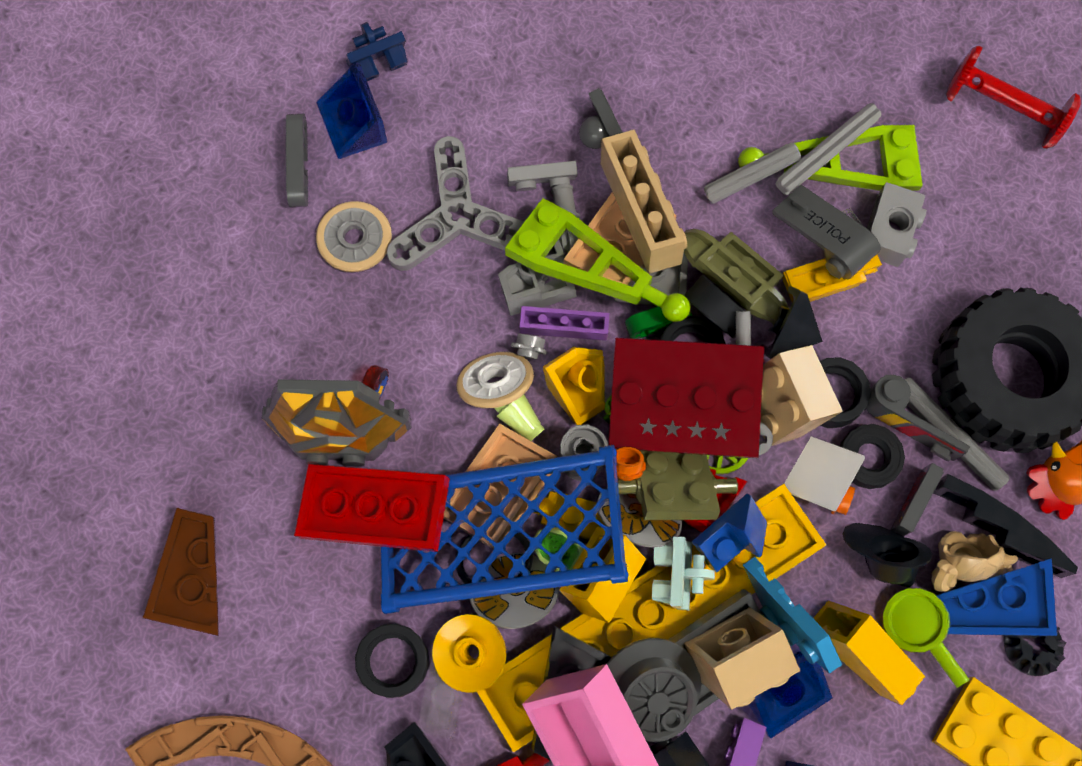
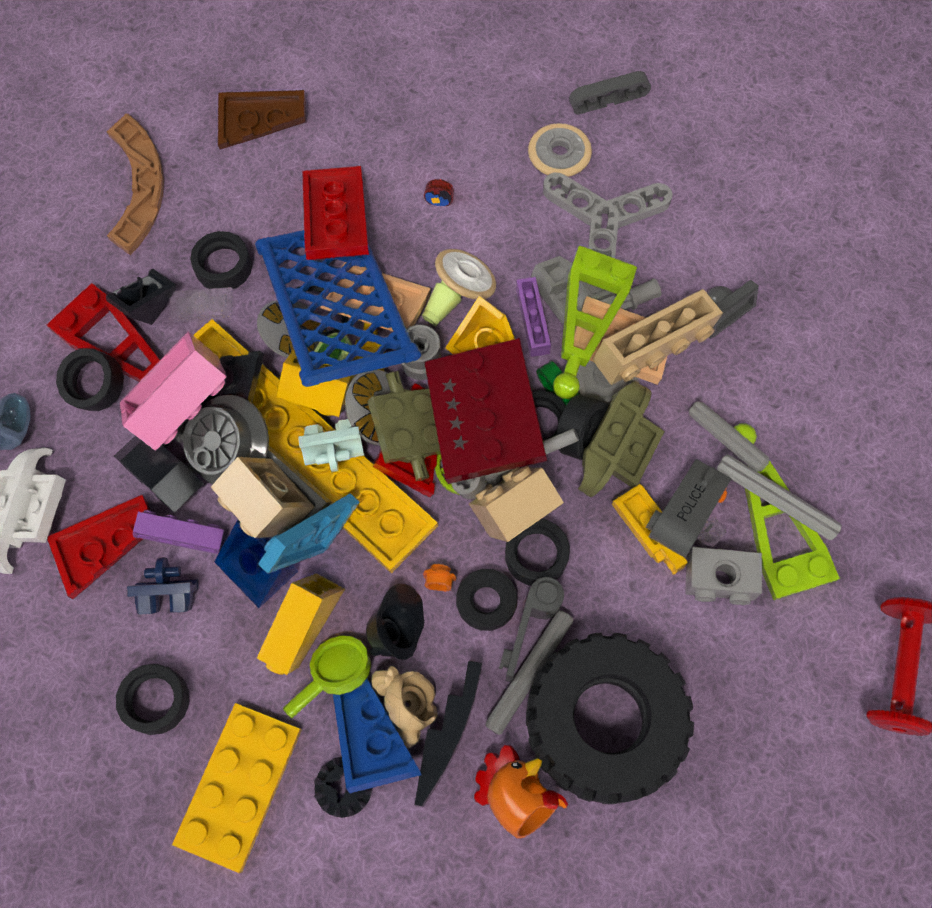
camera: 80 degrees right, 5 degrees down
(333, 420) = (390, 162): wedge -> none
(352, 114) = (666, 121): clear blue slope -> none
(390, 47) = (731, 116): dark blue hips -> none
(452, 653) = (234, 306): yellow dish -> none
(528, 176) = (667, 278): light grey plate -> none
(529, 346) = (503, 294): light grey plate -> none
(630, 463) = (412, 377): orange plate -> none
(735, 530) = (377, 481): blue slope -> none
(794, 326) = (583, 491): black slope -> none
(823, 473) = (456, 556): white sticker -> none
(917, 499) = (452, 645): dark grey tile -> none

